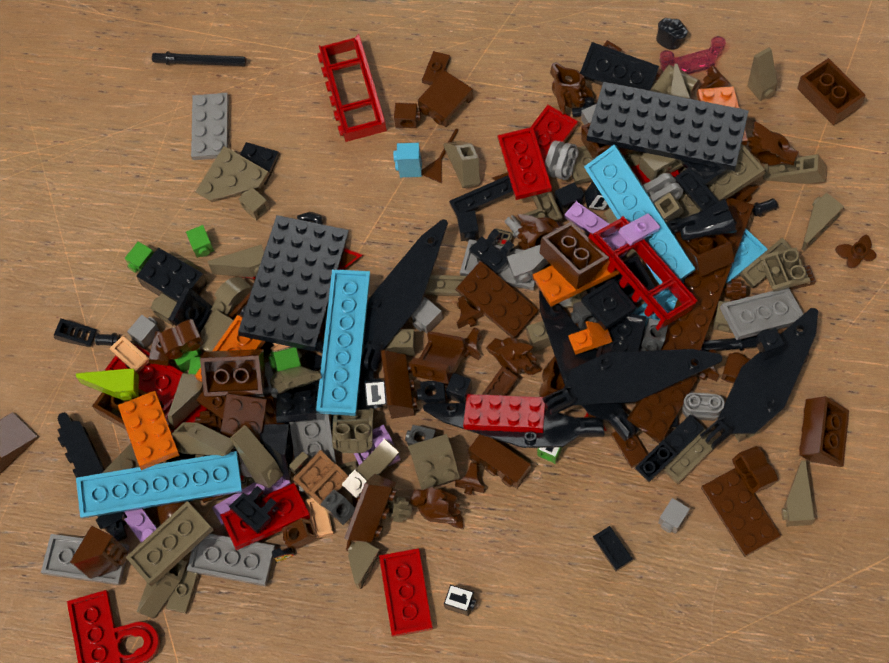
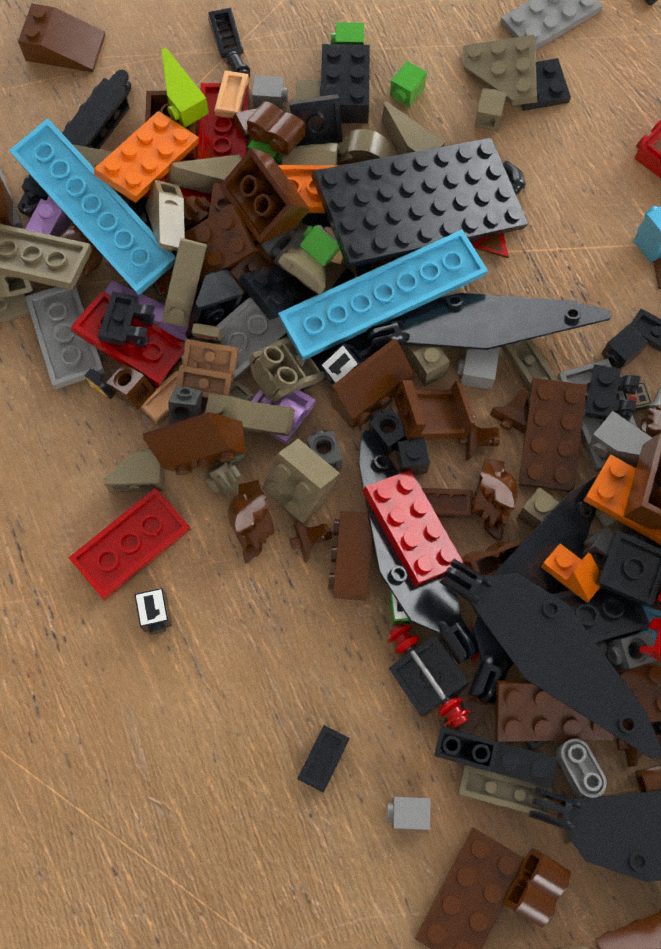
camera: 50 degrees right, 5 degrees up
(599, 458) = (429, 676): none -> black plate

